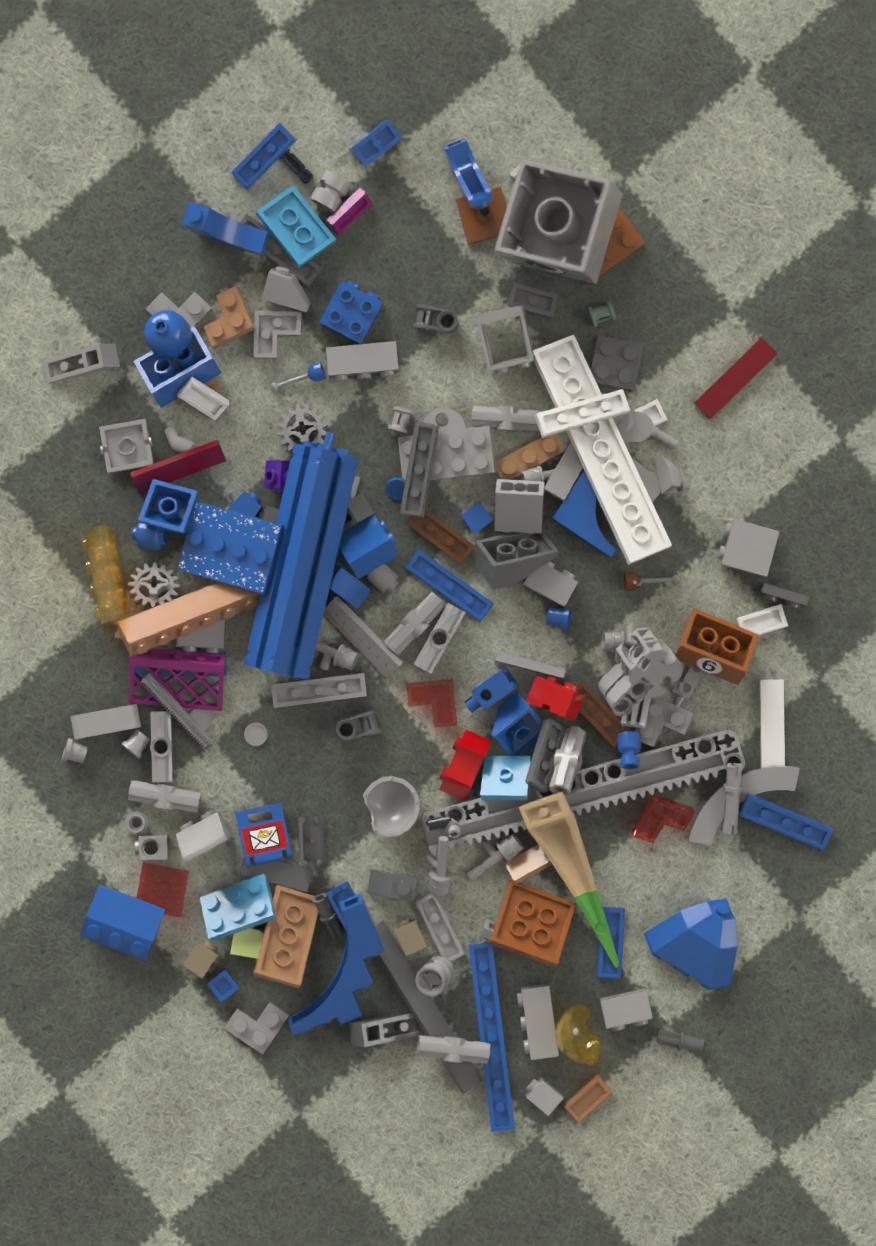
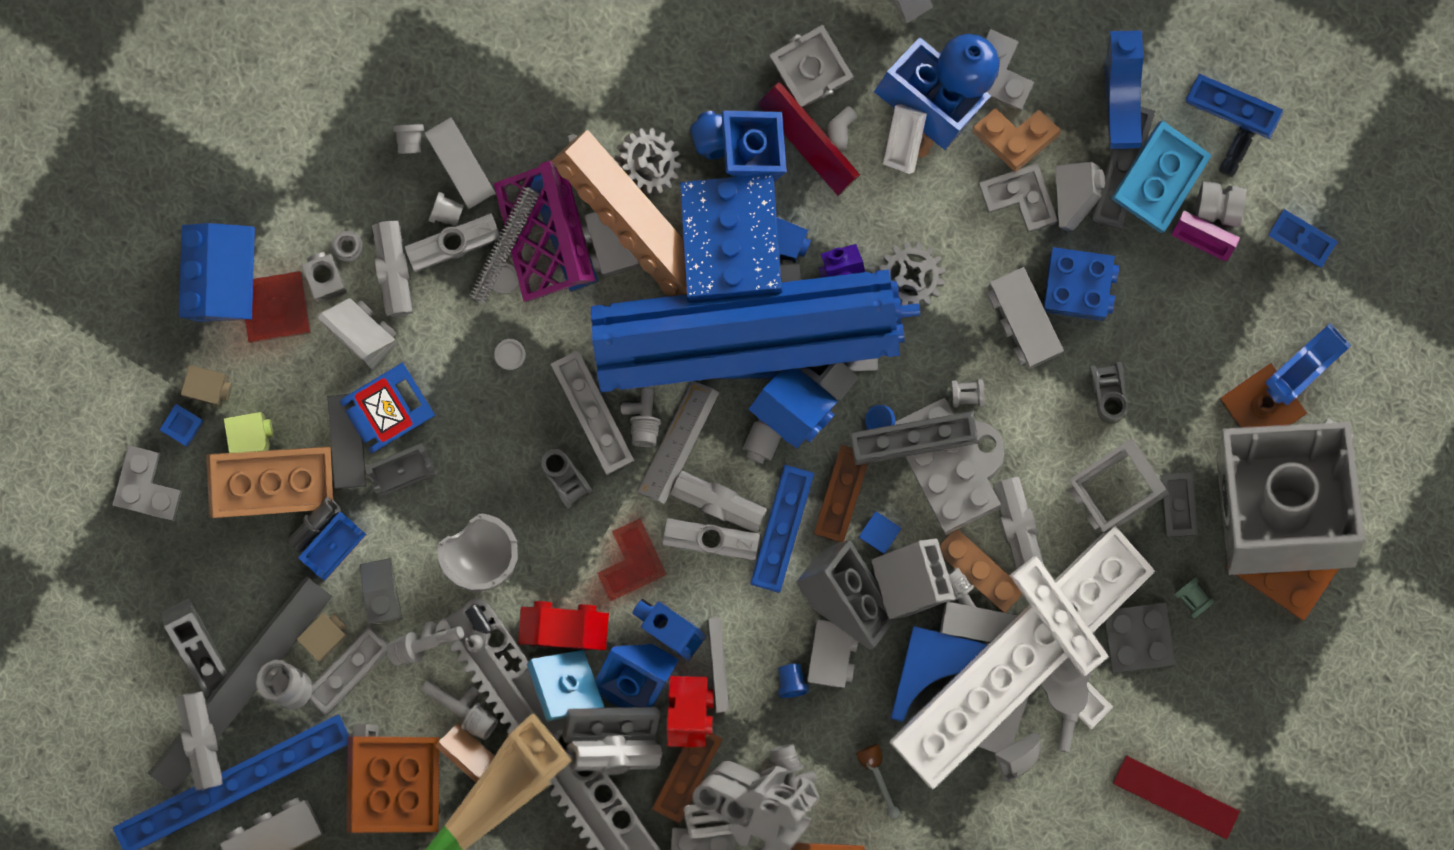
camera: 75 degrees right, 5 degrees down
(107, 574) = (643, 99): clear yellow slope -> none
(237, 907) = (284, 408): dark azure plate -> none
(315, 373) = (988, 266): hinge -> none
(348, 587) = (734, 401): blue brick -> none
(353, 974) = (251, 581): blue arch -> none
(629, 745) = (660, 826): blue piece -> none

